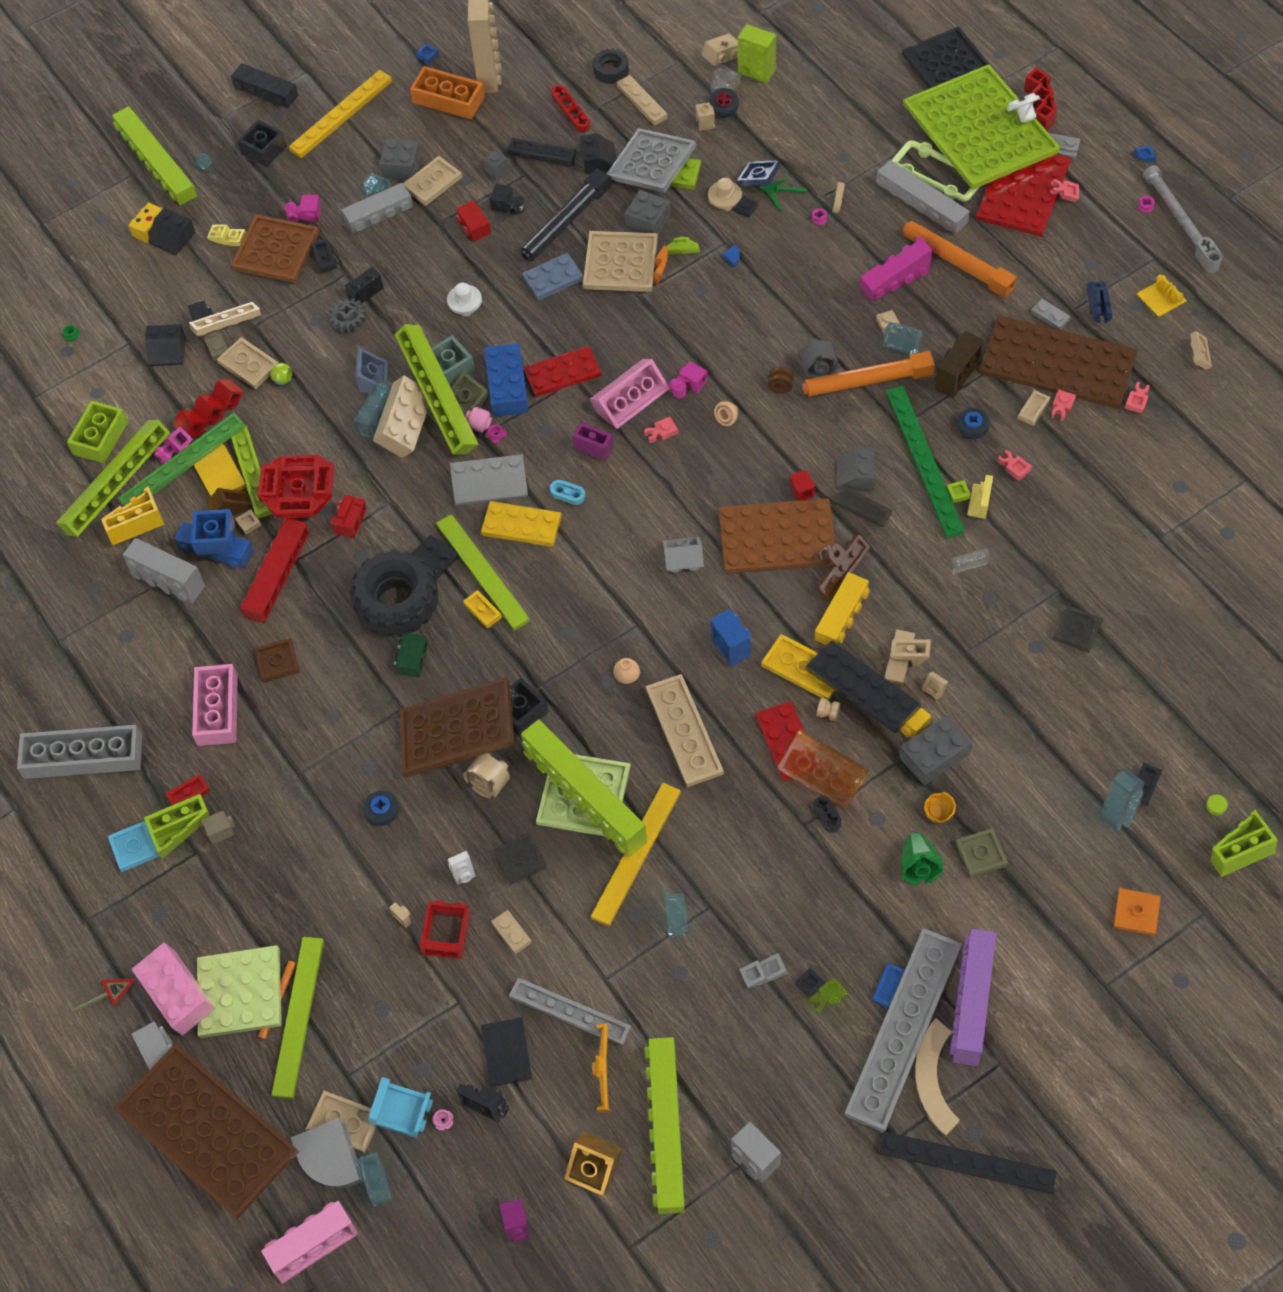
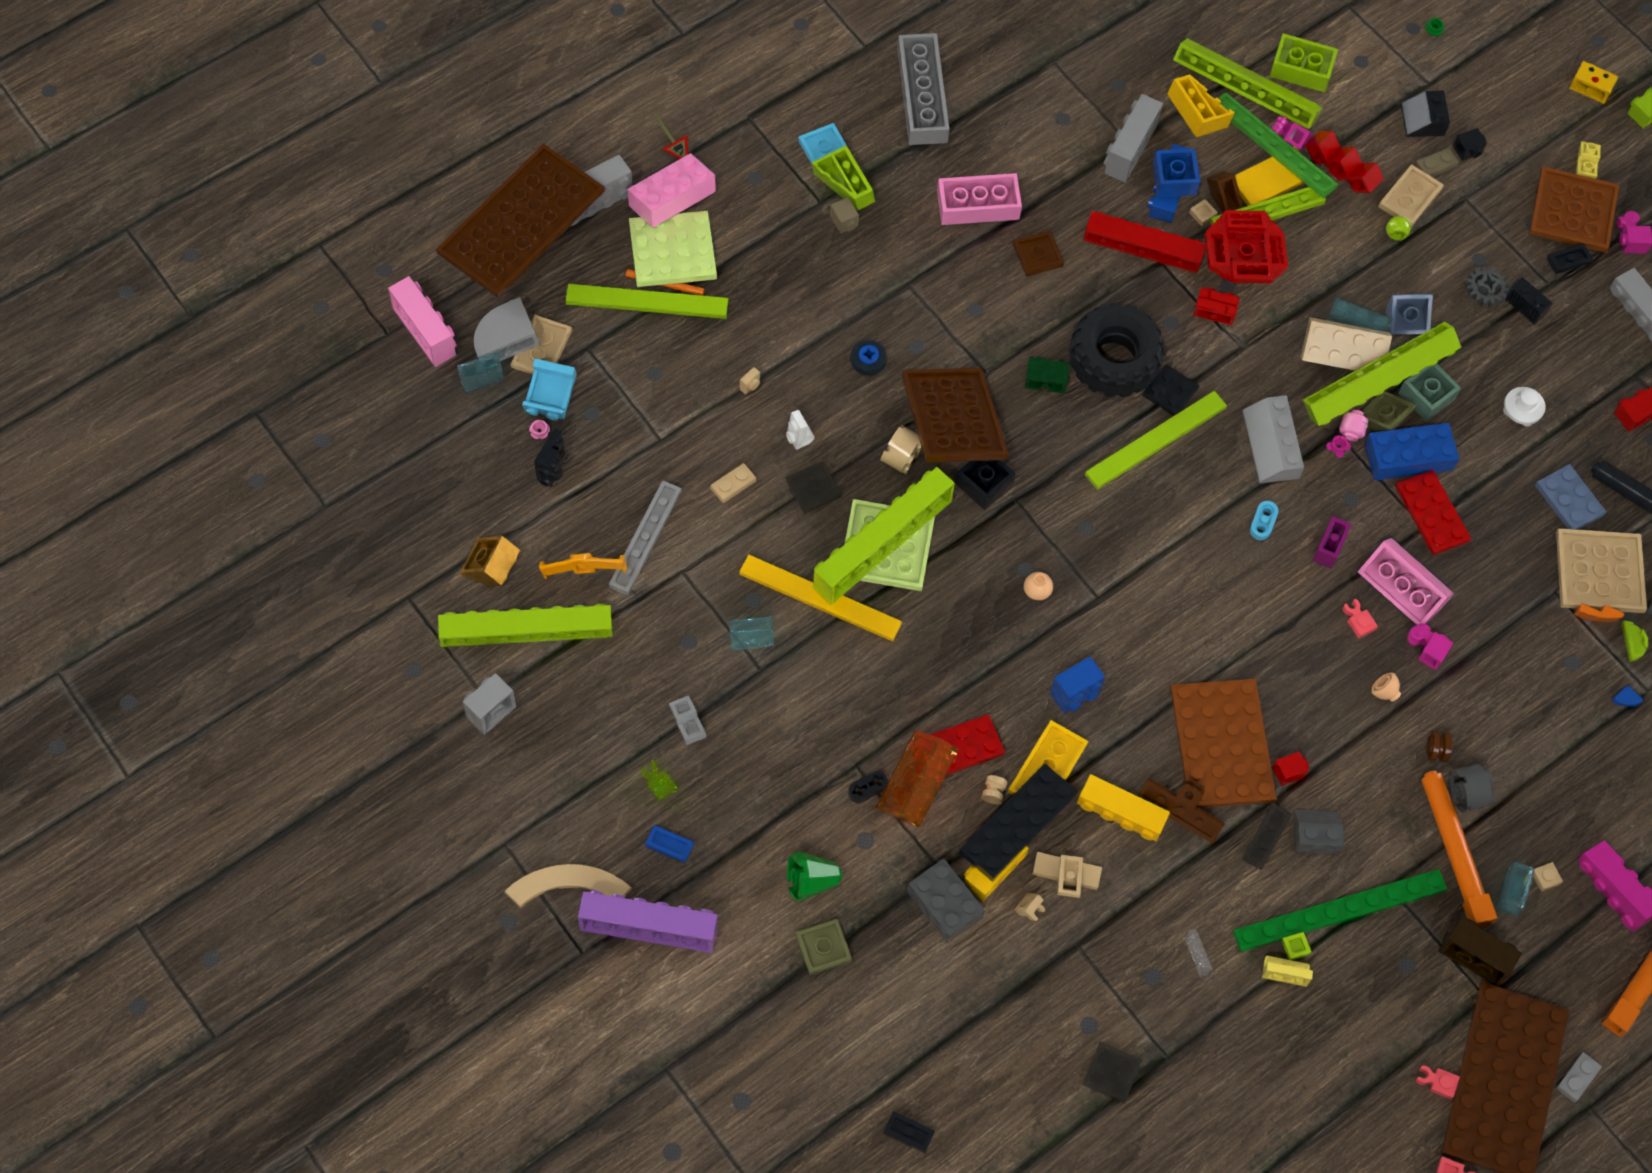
camera: 80 degrees right, 5 degrees up
(171, 231) = (1583, 105): black slope -> none
(188, 789) = (883, 187): red plate -> none
(225, 318) = (1465, 166): tan plate -> none
(444, 949) = (736, 406): red window -> none
(482, 609) = (1107, 440): yellow plate -> none
(506, 1052) = (606, 483): black tile -> none
(515, 1220) = (432, 490): magenta brick -> none
(521, 524) = (1220, 476): yellow plate -> none
(683, 554) = (1189, 639): light grey slope -> none
(684, 730) = (965, 642): tan plate -> none
(809, 983) = (672, 763): black plate -> none
(903, 1030) = (620, 854): light grey plate -> none
(939, 807) = (873, 901): light orange hair -> none
(968, 1162) = (476, 913): black plate -> none
(979, 424) = (1392, 974): black wheel -> none
(1016, 467) = (1338, 1017): coral plate -> none
(1033, 408) = (1430, 1046): tan tile -> none
(1099, 301) = (1605, 1137): dark blue plate -> none
(1122, 799) = (872, 1088): clear light blue brick -> none
(1137, 912) = (752, 1109): orange plate -> none

